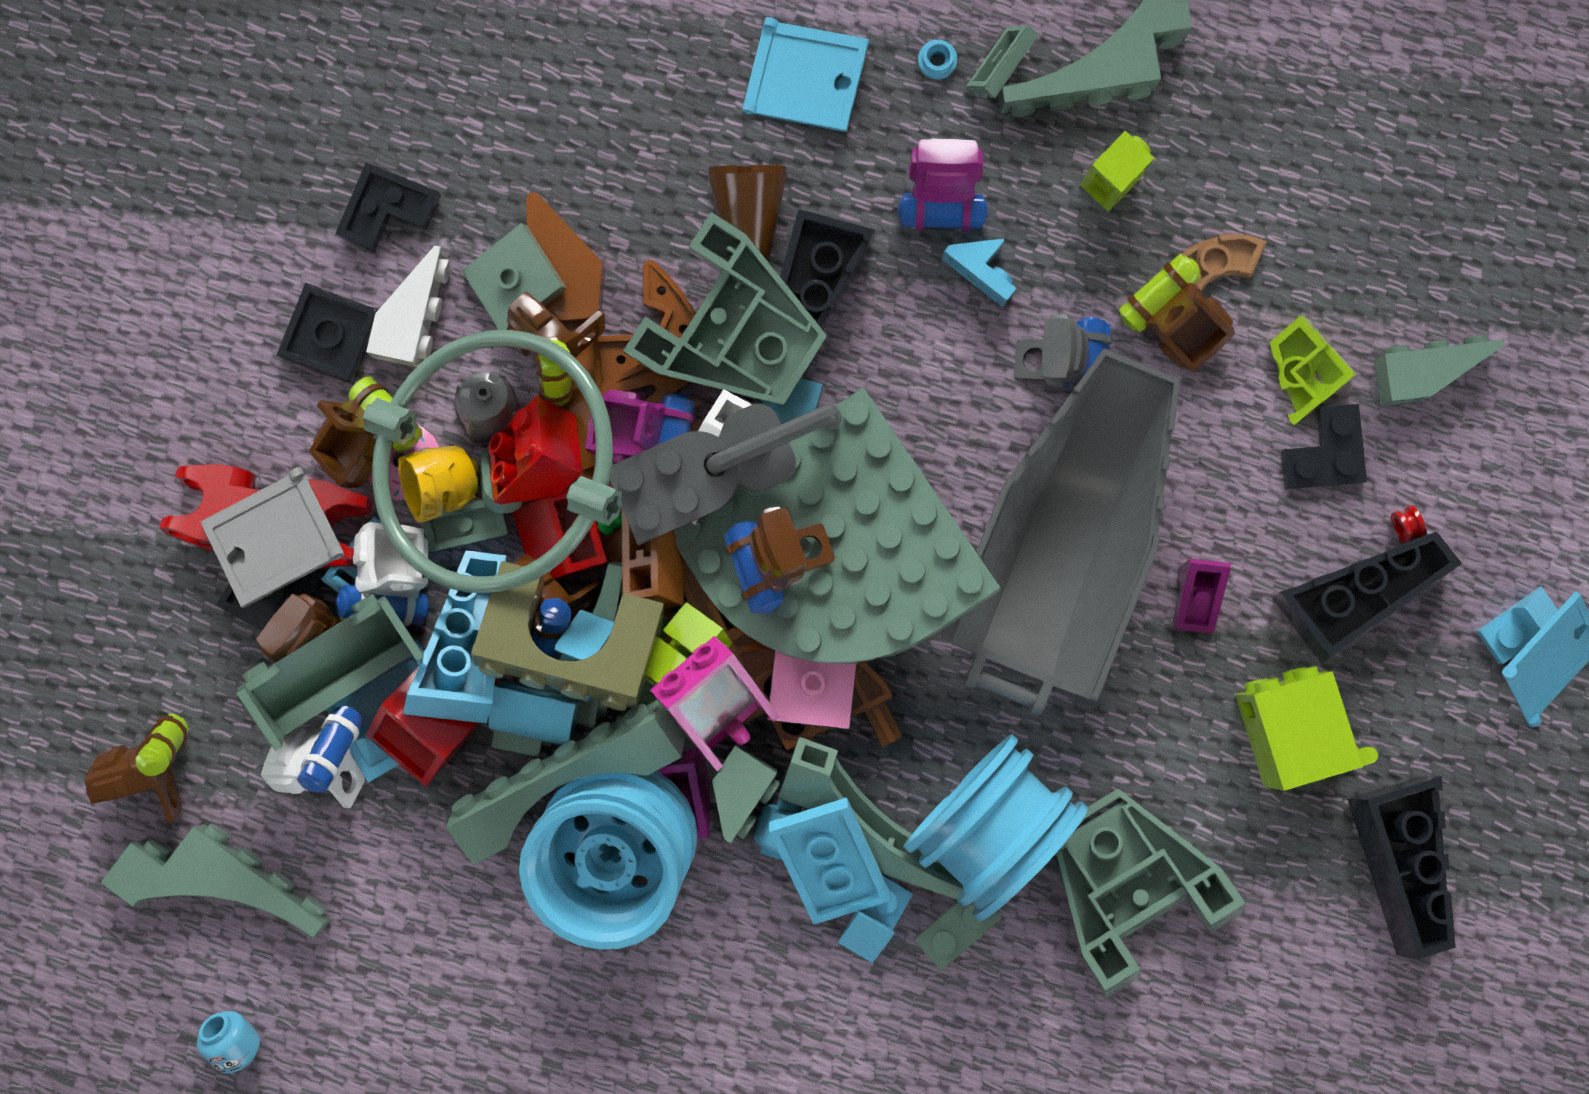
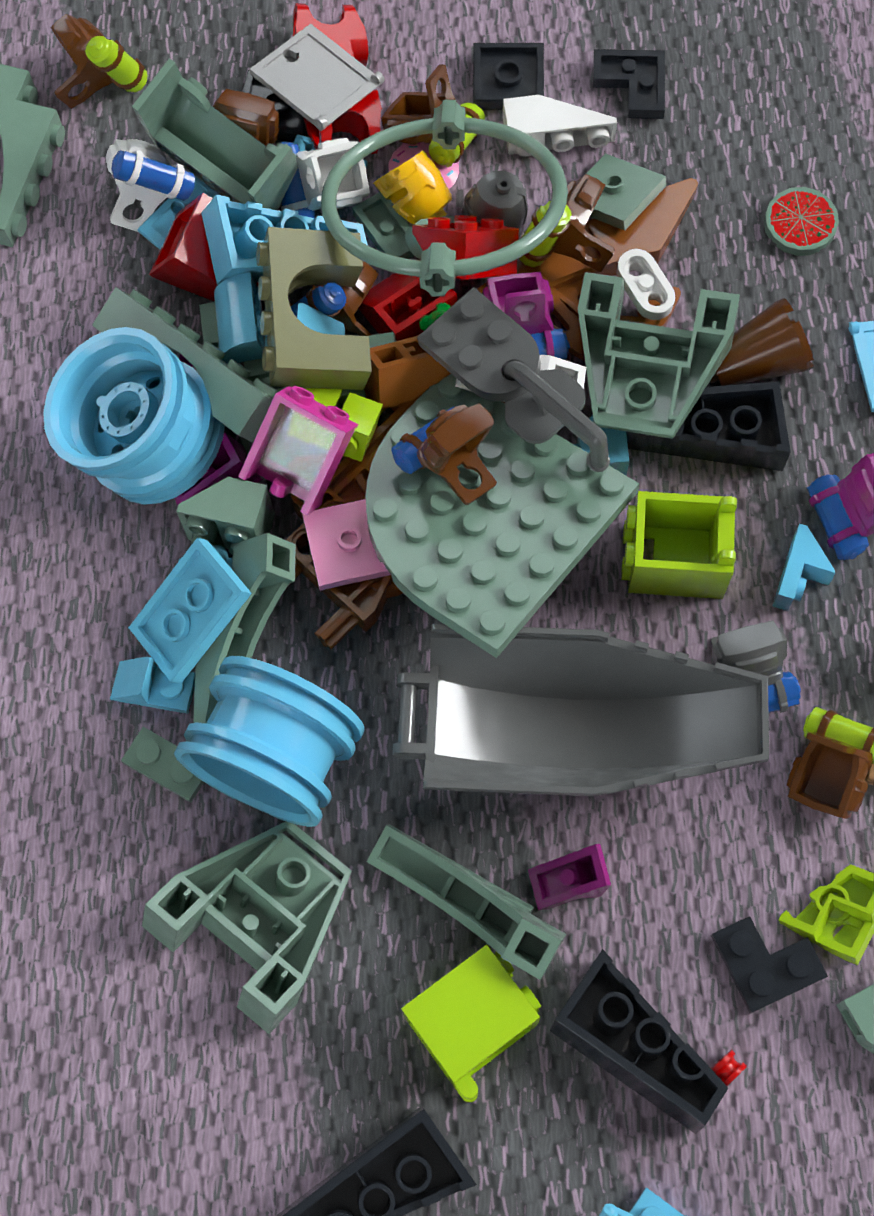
camera: 75 degrees right, 15 degrees down
(613, 108) = (801, 221): none -> tile
(640, 288) = (646, 287): none -> white plate
(929, 364) = (690, 544): none -> lime container
(1198, 685) = (475, 902): none -> sand green arch

